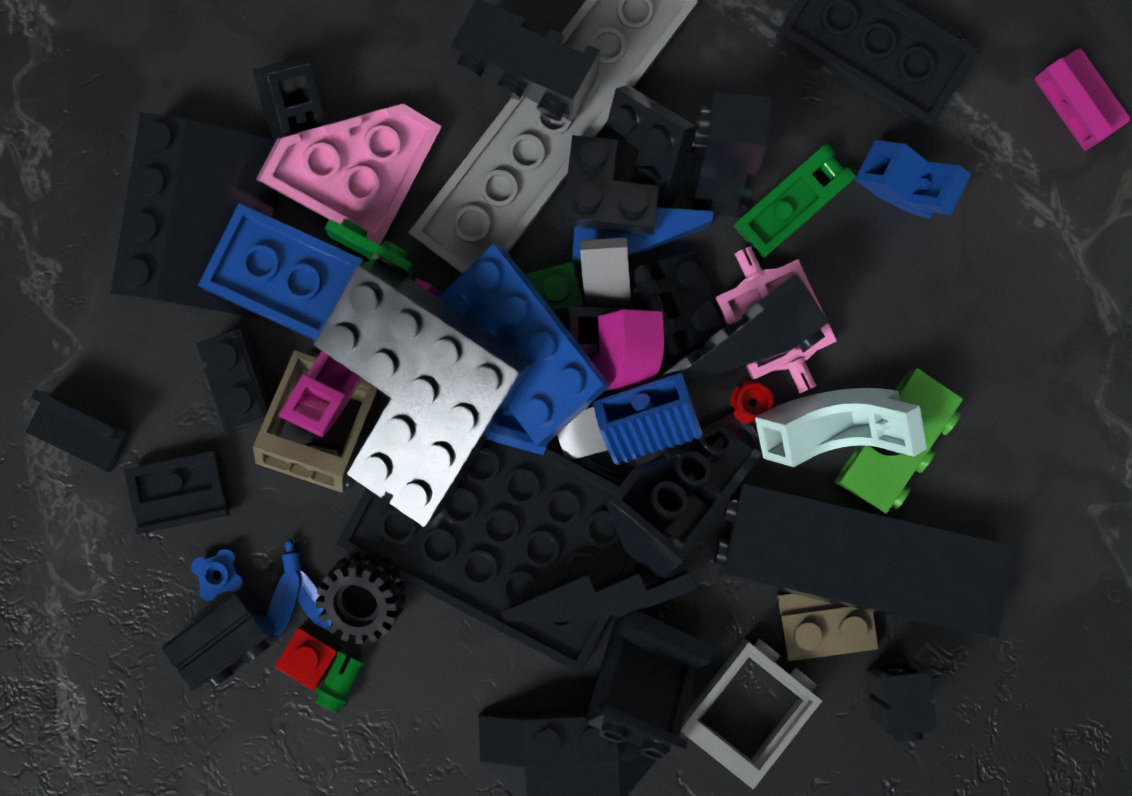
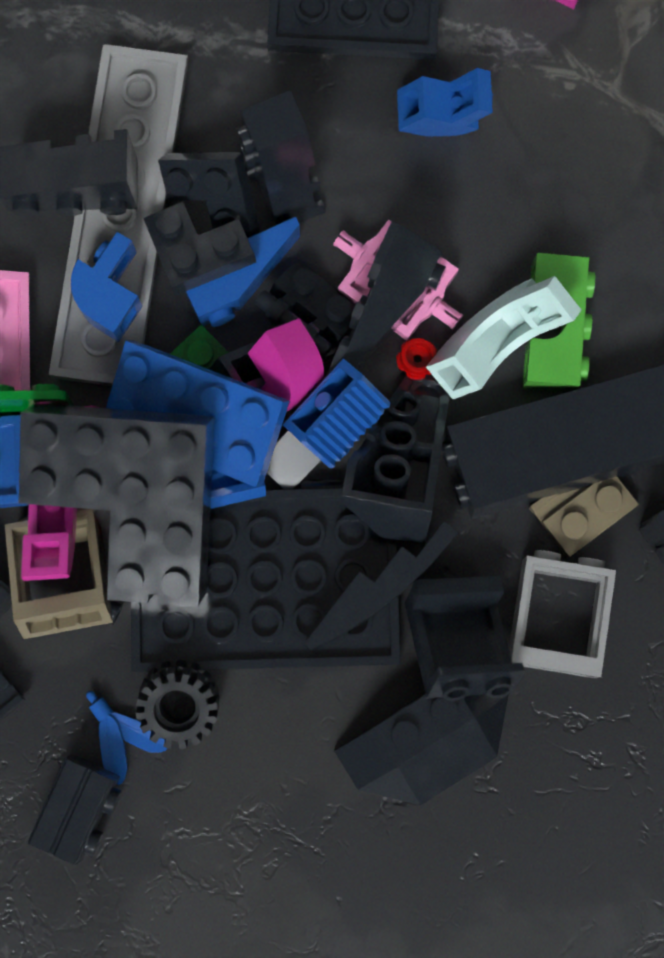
camera: 30 degrees left, 5 degrees down
(222, 562) = (29, 758): blue plate -> none
(306, 658) = (159, 785): red plate -> none
(338, 682) = (198, 789): green pin -> none
(492, 180) = (98, 294): none -> blue brick
(606, 273) = (233, 313): light grey slope -> none
(793, 202) = (358, 176): green plate -> none

